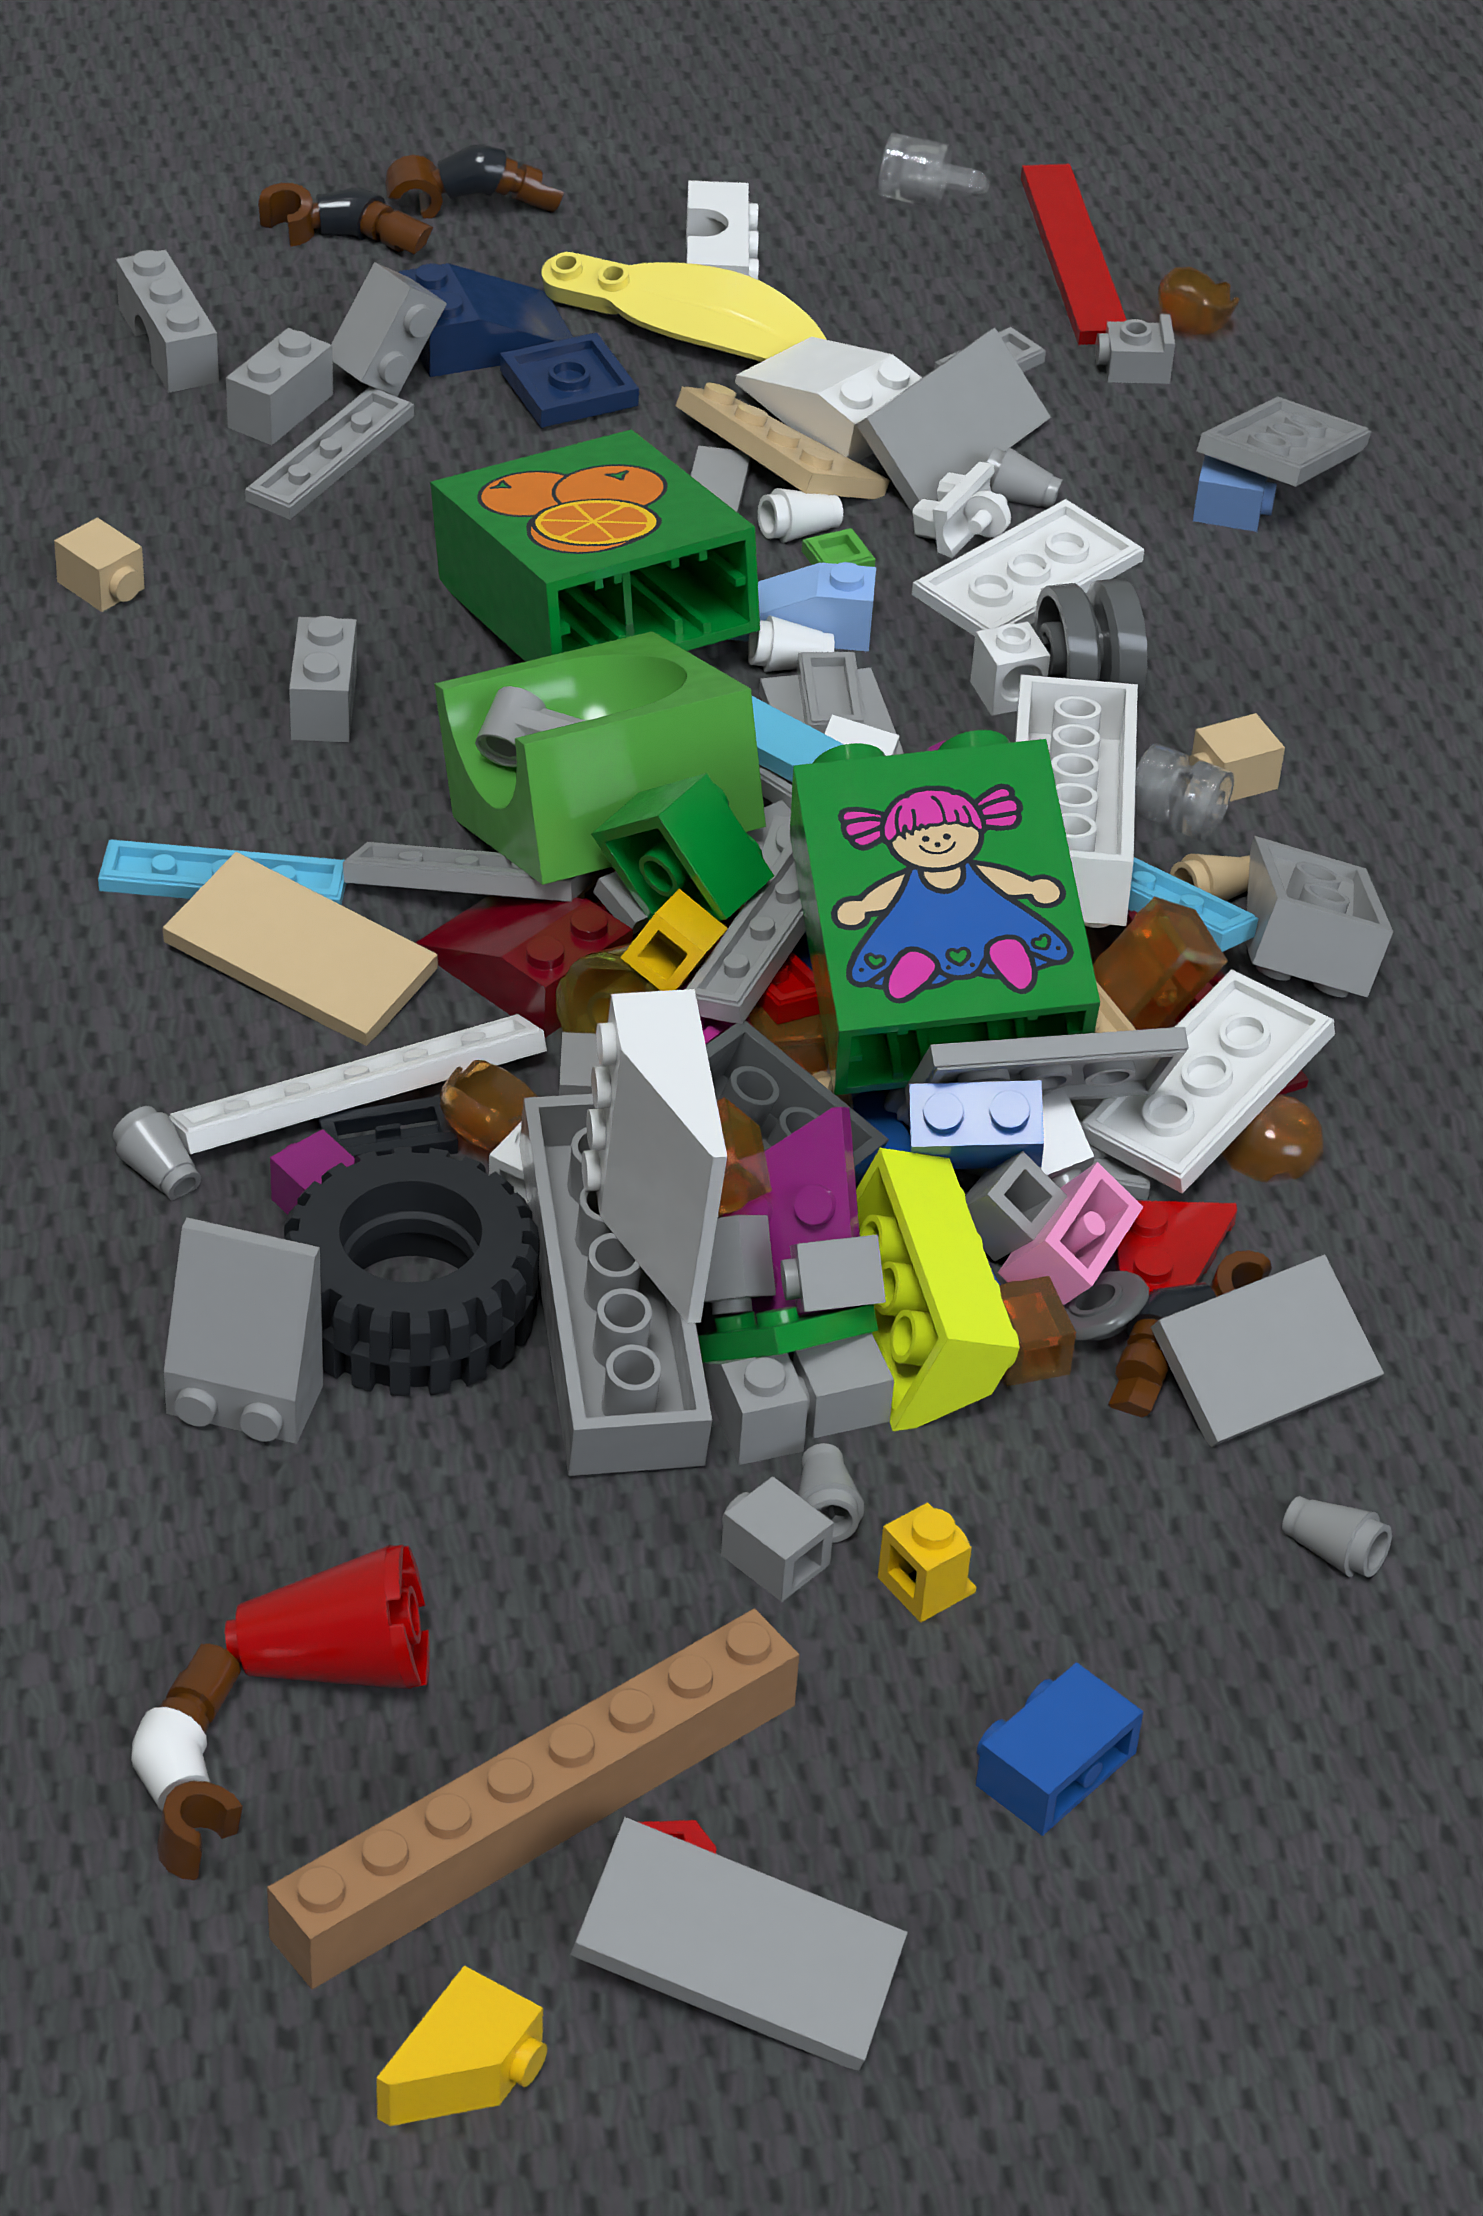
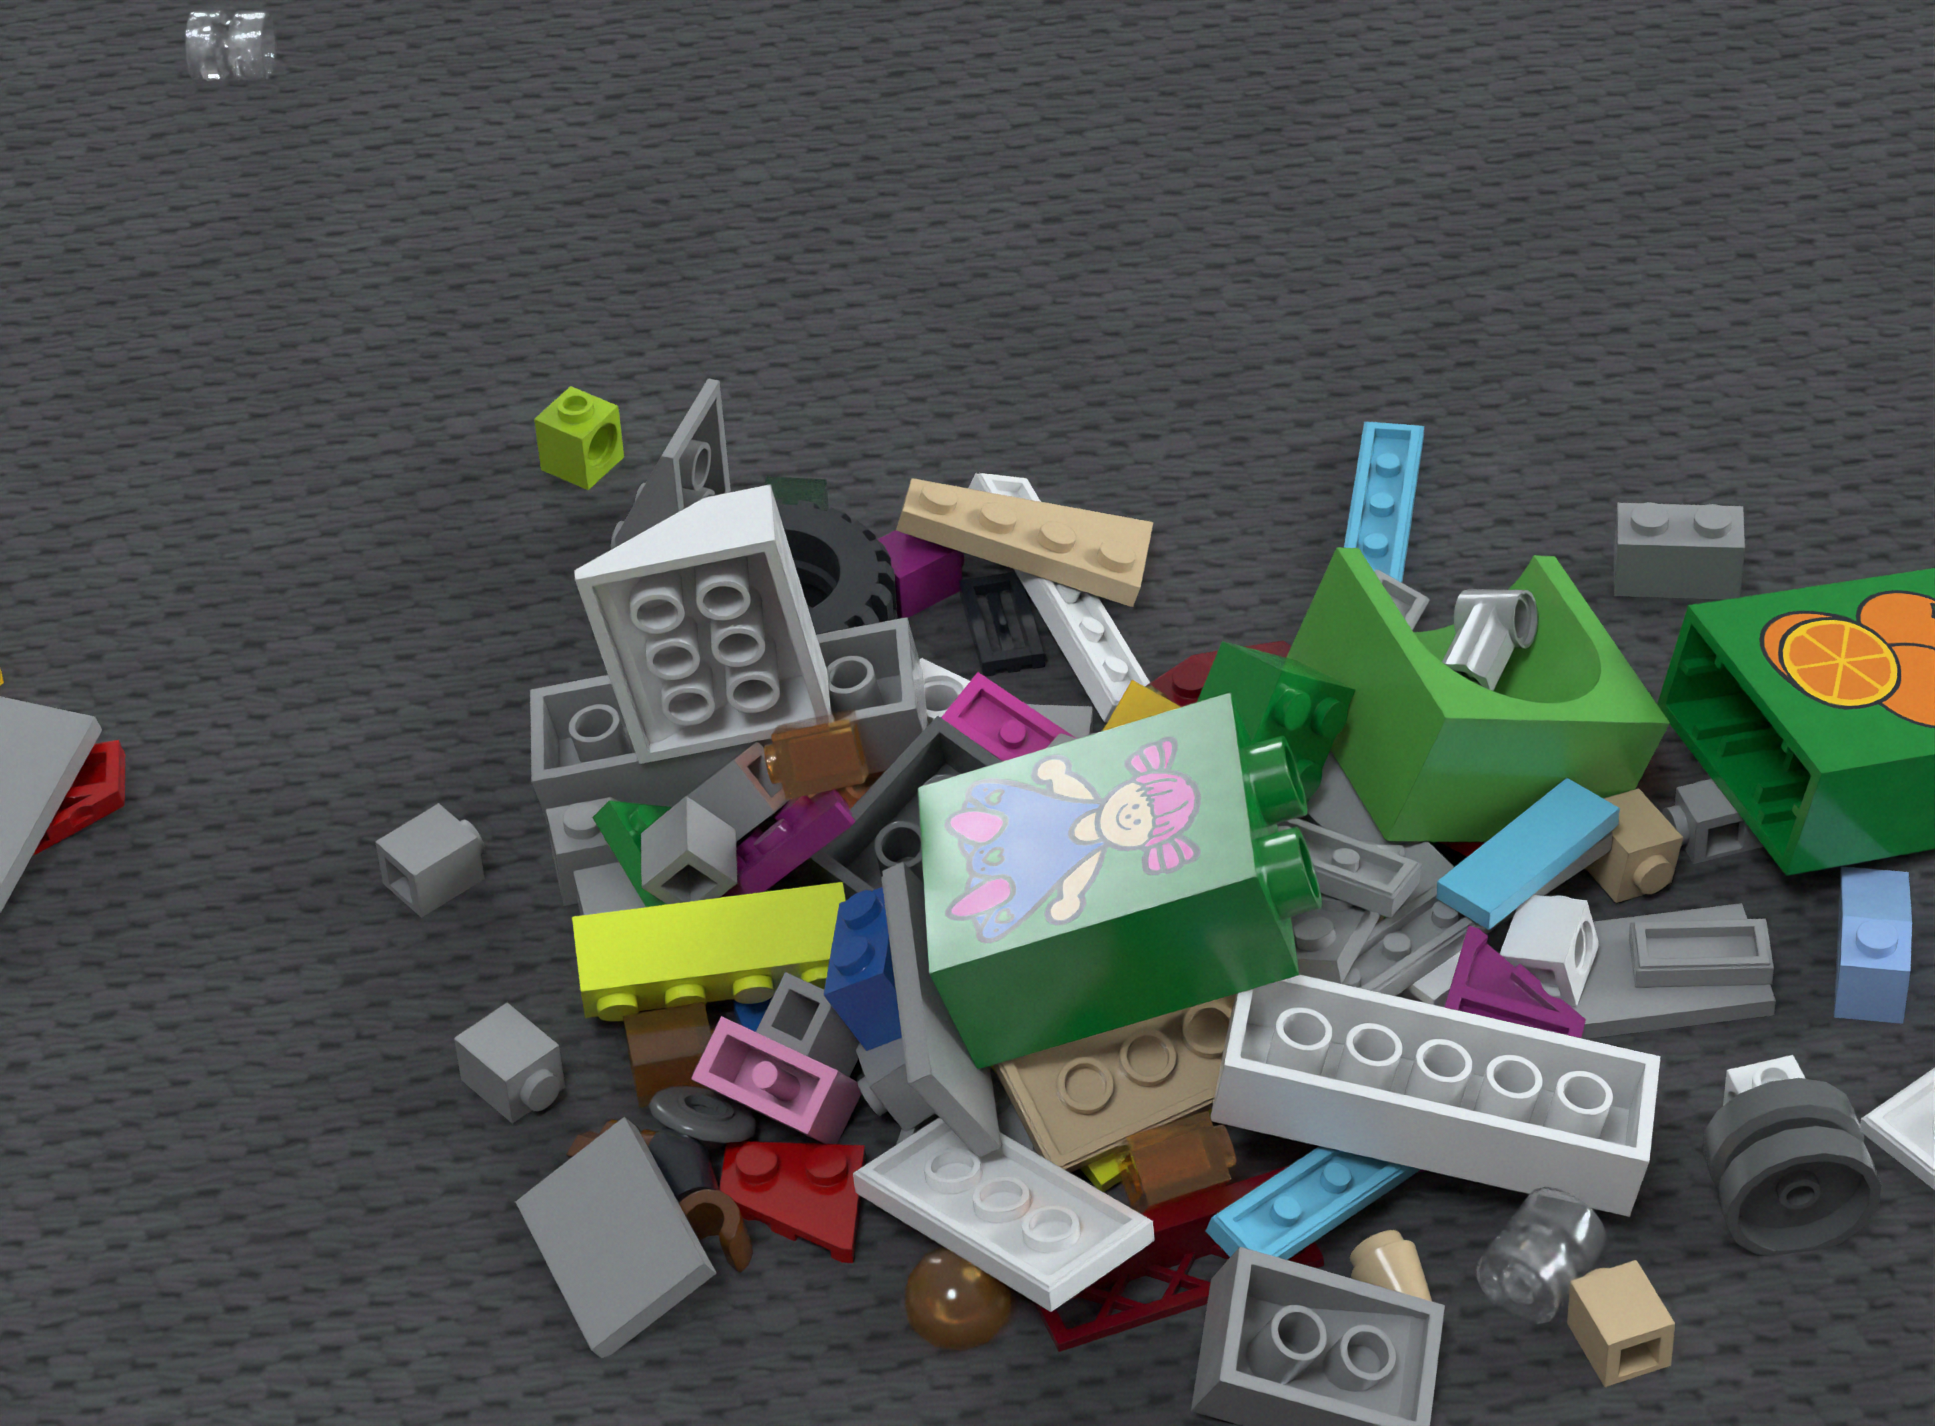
camera: 100 degrees right, 0 degrees up
(89, 1465) = (579, 438): none -> lime brick
(99, 564) = (1863, 392): tan brick -> none
(155, 1151) = (978, 455): light grey cone -> none
(172, 1765) = (256, 504): reddish brown piece -> none
(300, 948) = (1256, 552): tan tile -> none
(306, 1077) = (1048, 540): none -> tan wing
(339, 1625) = (363, 592): red cone -> none
(483, 1103) = (1011, 659): clear orange hair -> none
(530, 1798) = (177, 707): medium nougat brick -> none
(780, 641) = (1807, 927): white cone -> none
(830, 1489) = (489, 903): light grey cone -> none
(939, 1553) = (379, 957): yellow brick -> none
(1054, 1449) = (510, 1063): none -> light grey brick
(1057, 1747) = (149, 1037): blue brick -> none
(1339, 1534) = (370, 1280): light grey cone -> none

